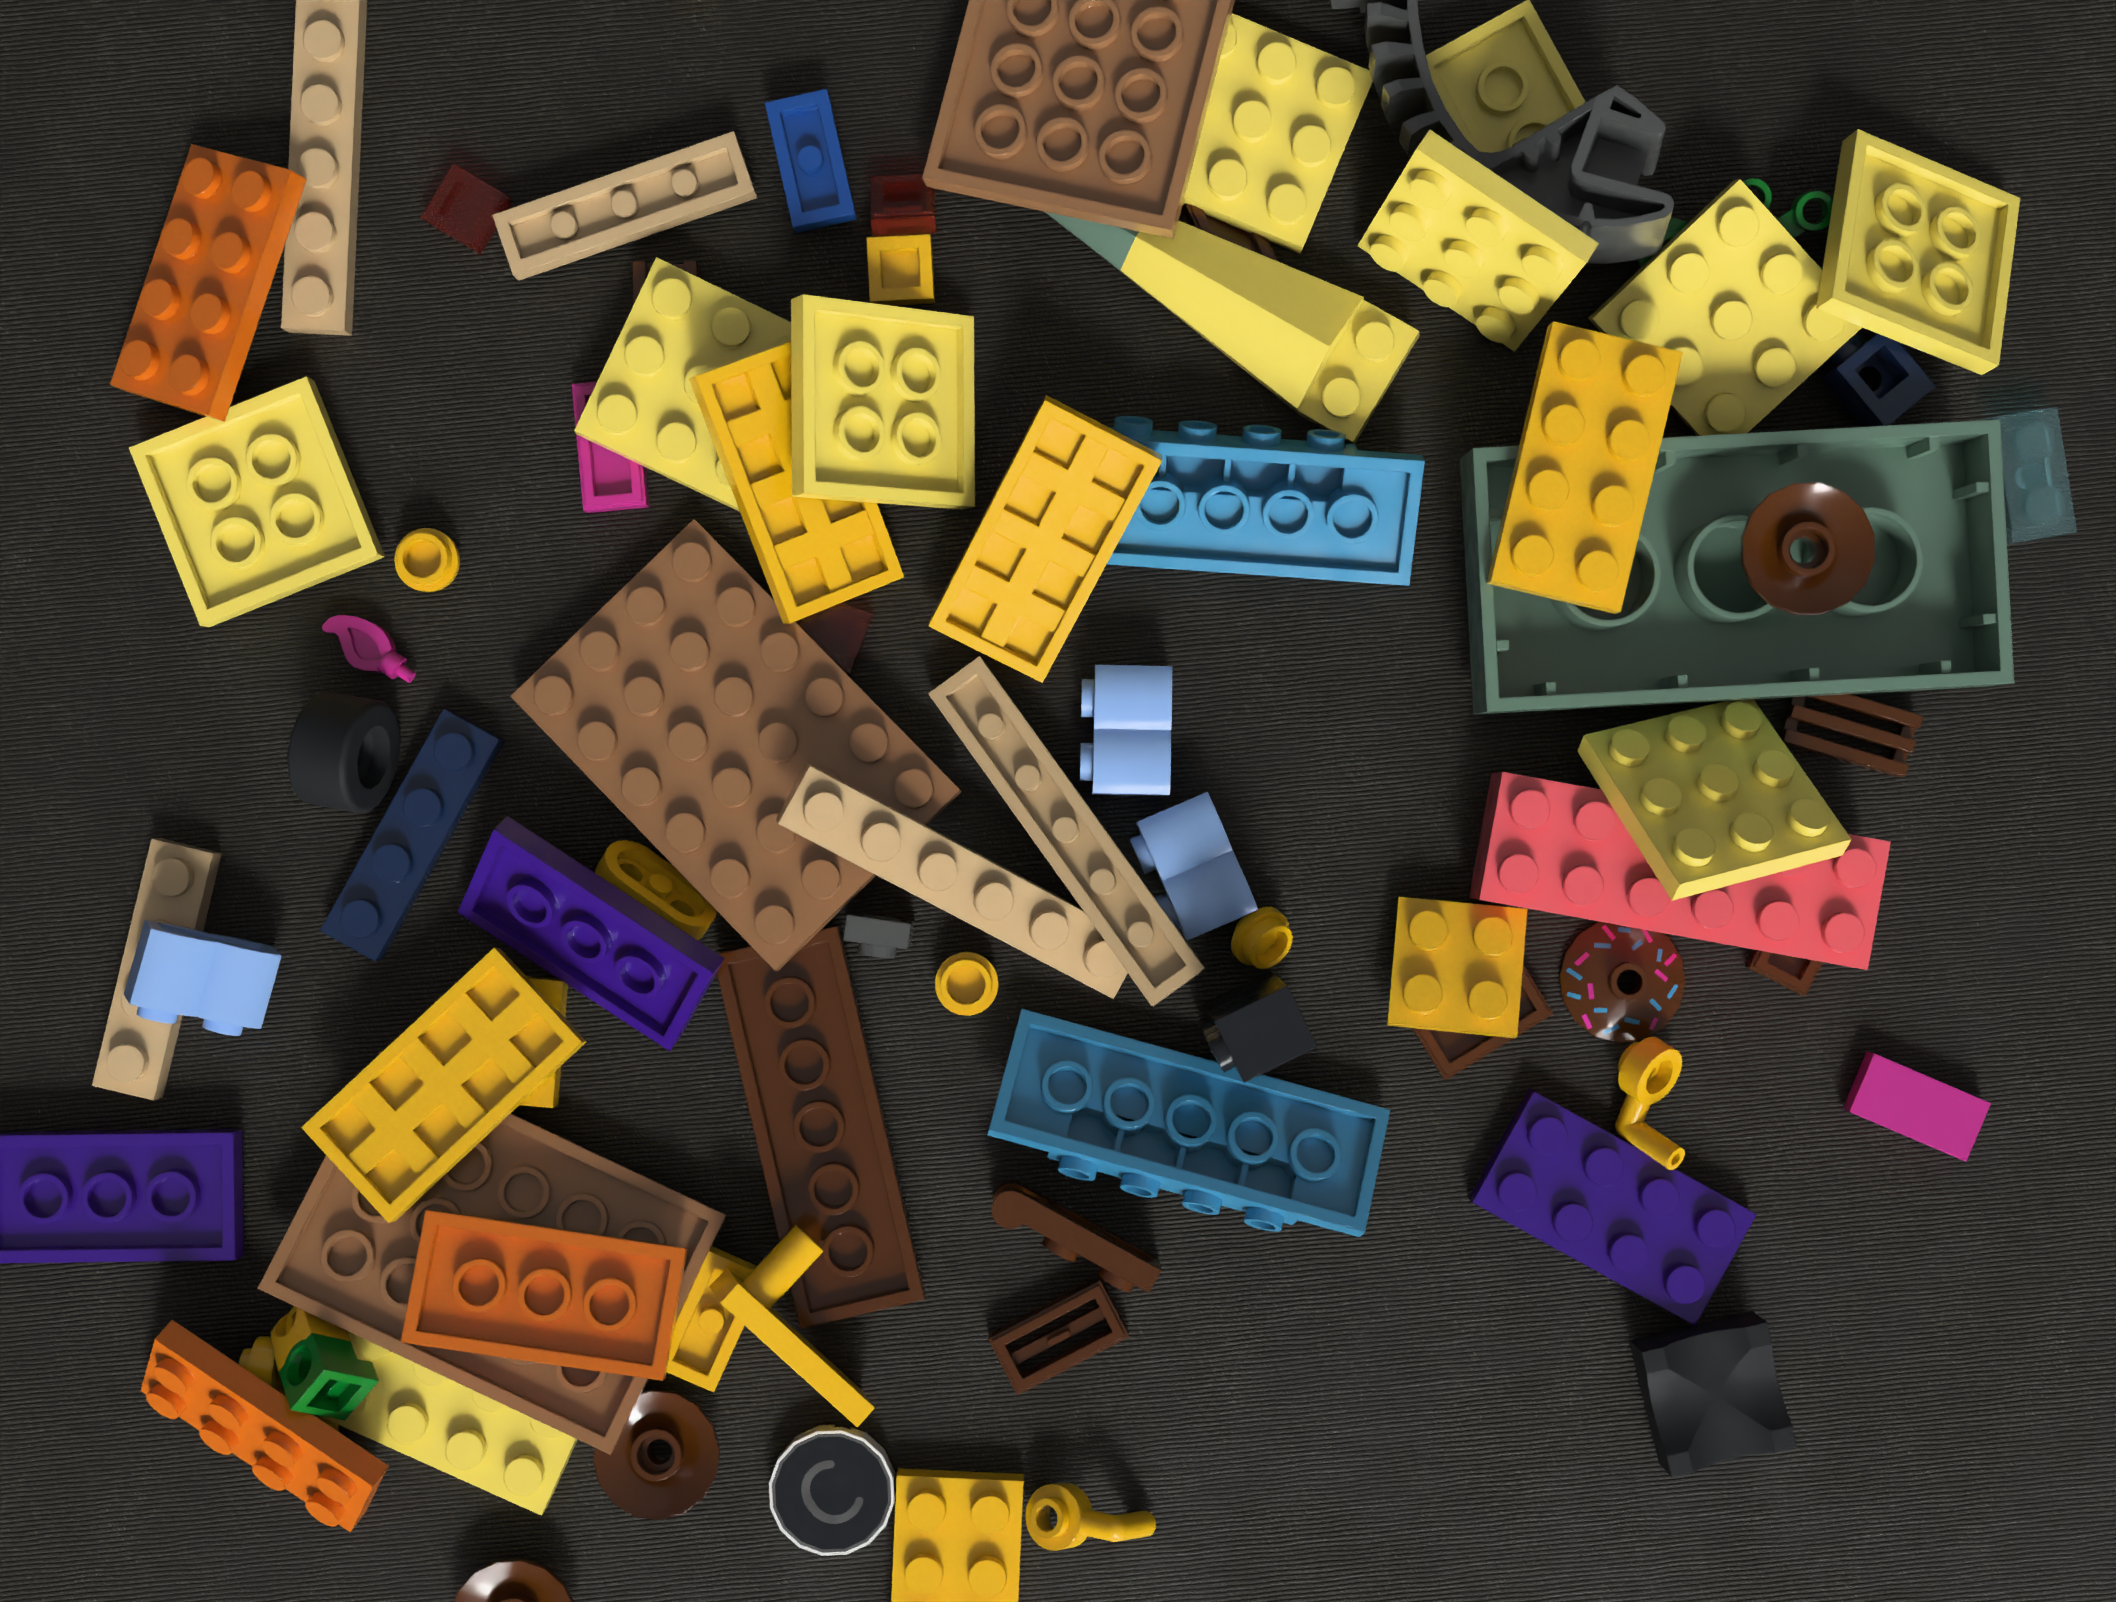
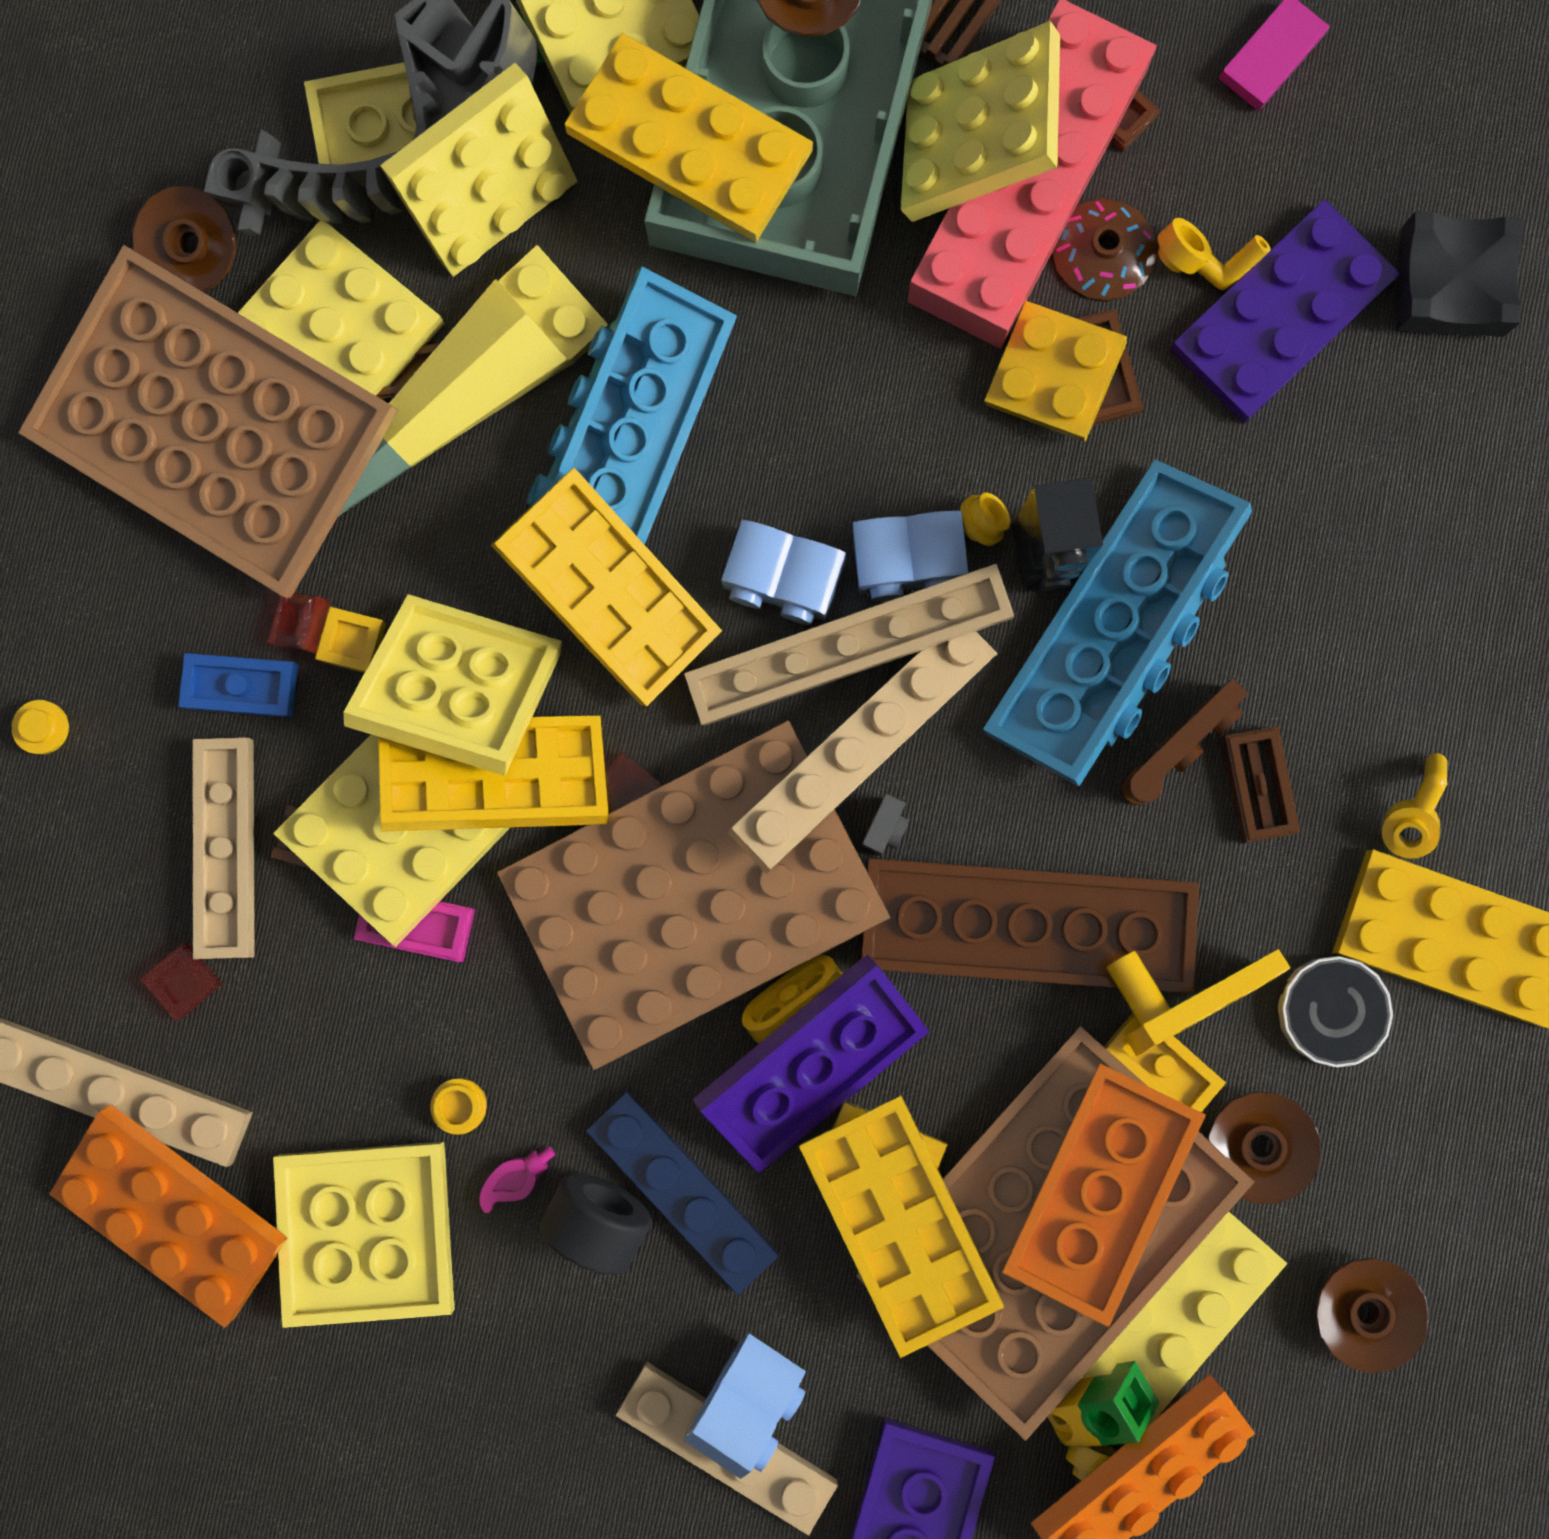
camera: 75 degrees left, 5 degrees down
(966, 983) = (948, 769): yellow plate -> none

